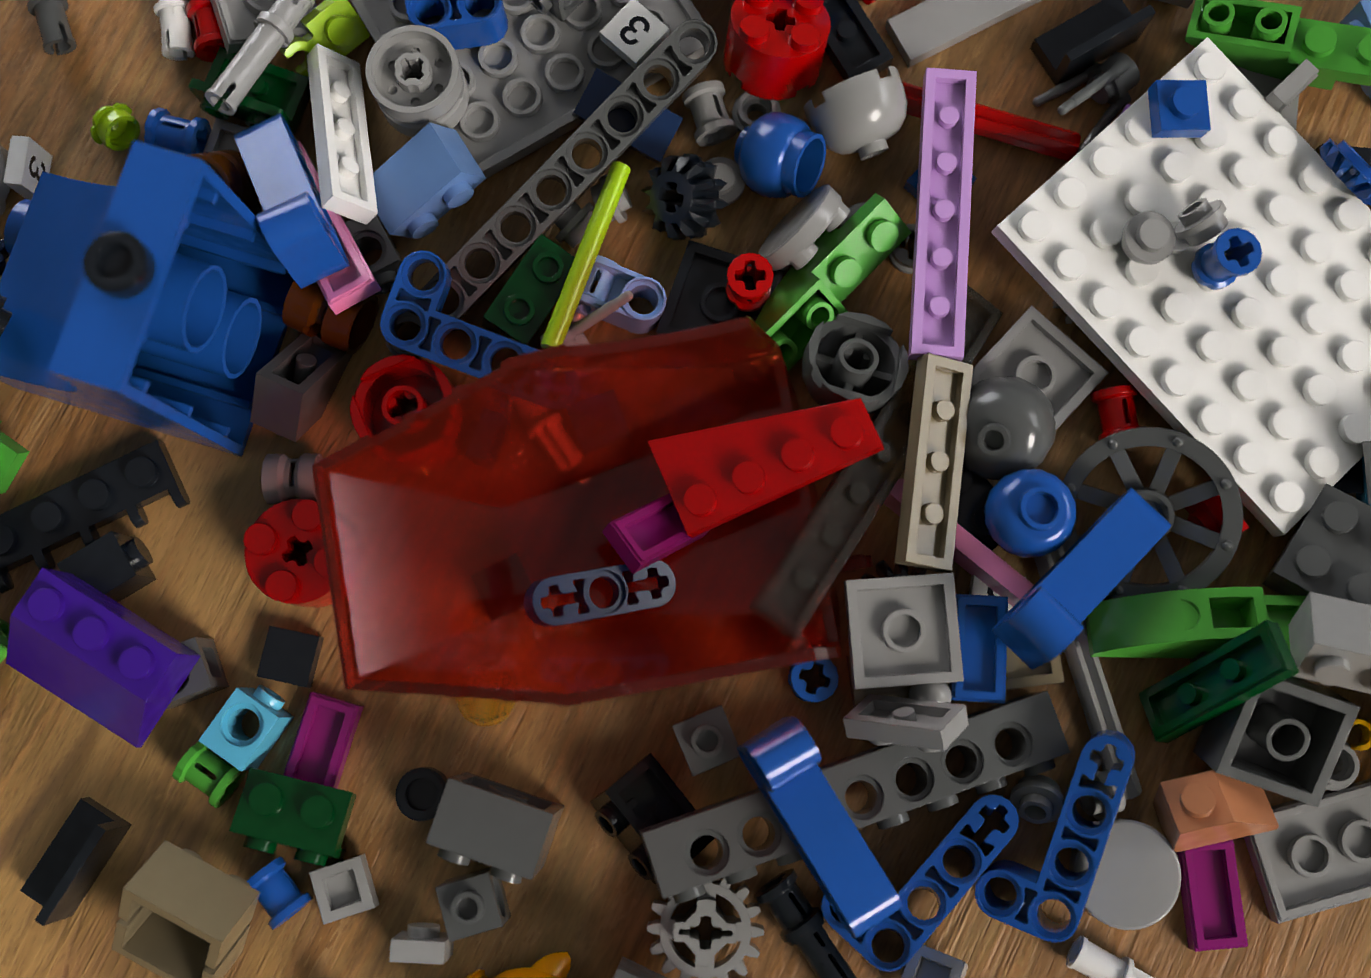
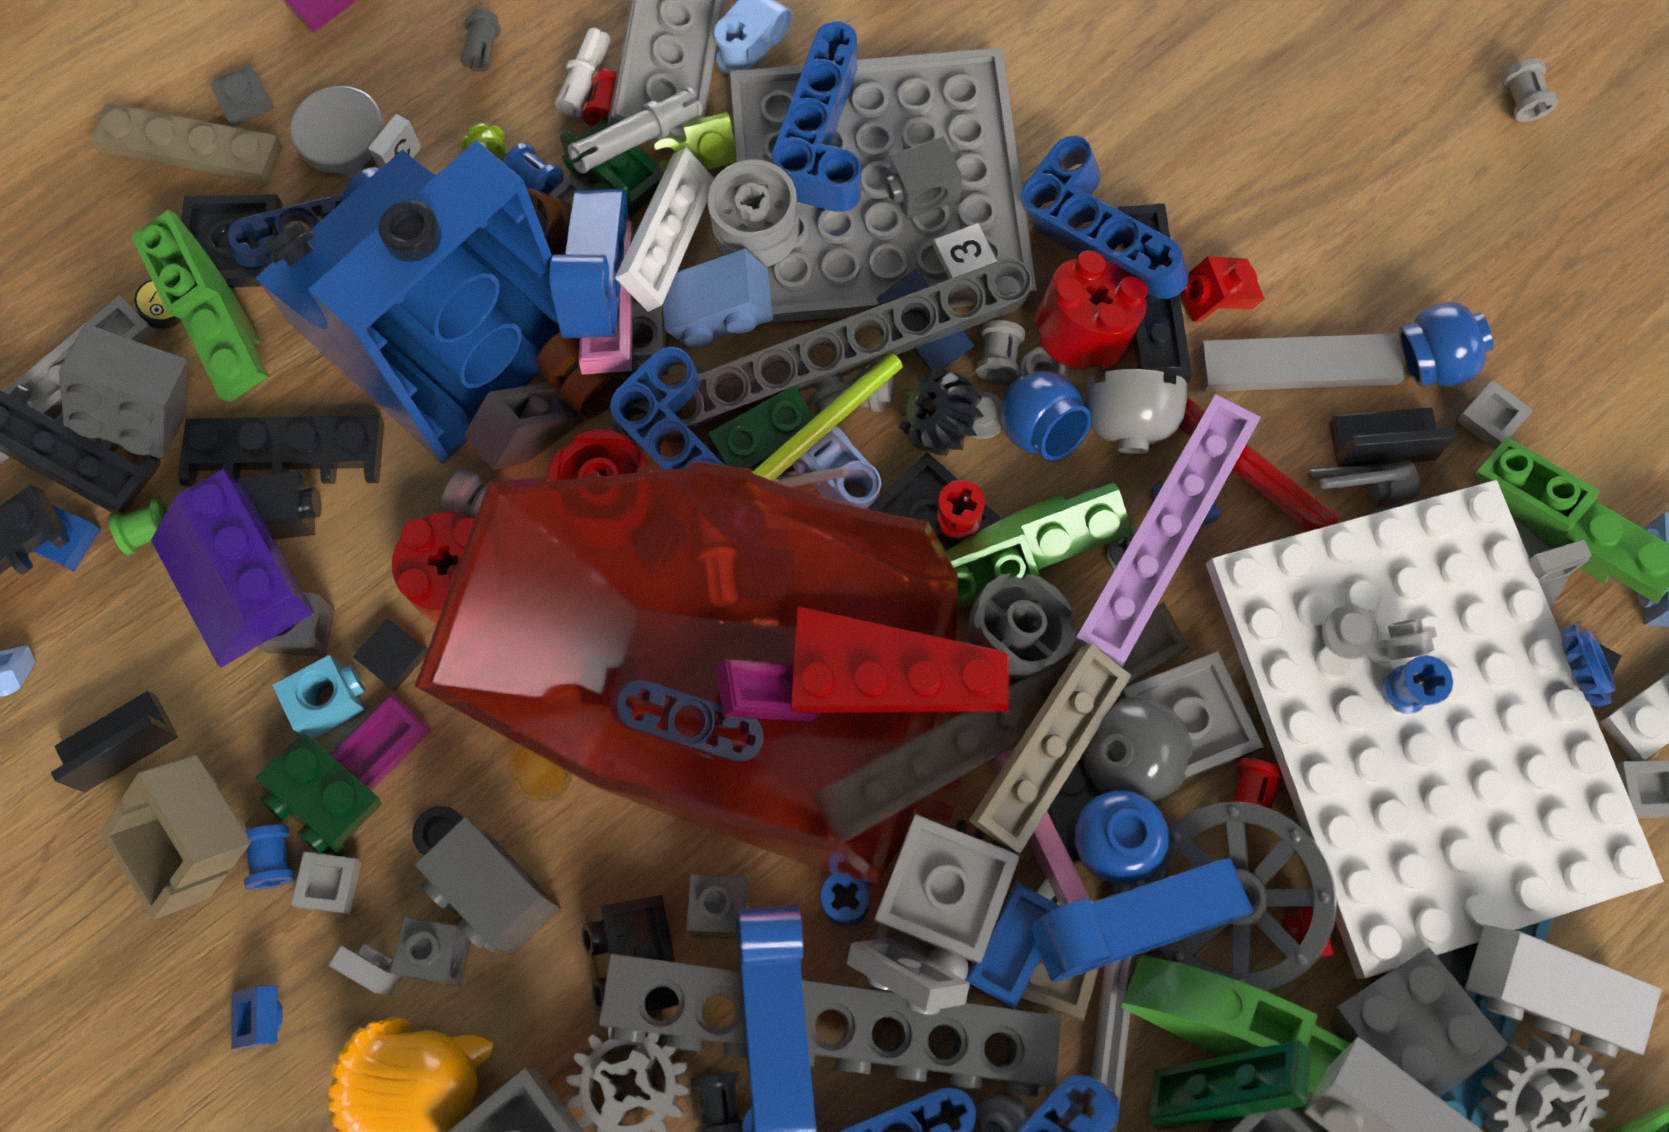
camera: 25 degrees right, 10 degrees down
(191, 770) = (253, 710): bright green bush -> none
(795, 234) = (1018, 494): light grey tile -> none
(1179, 109) = (1435, 529): blue plate -> none

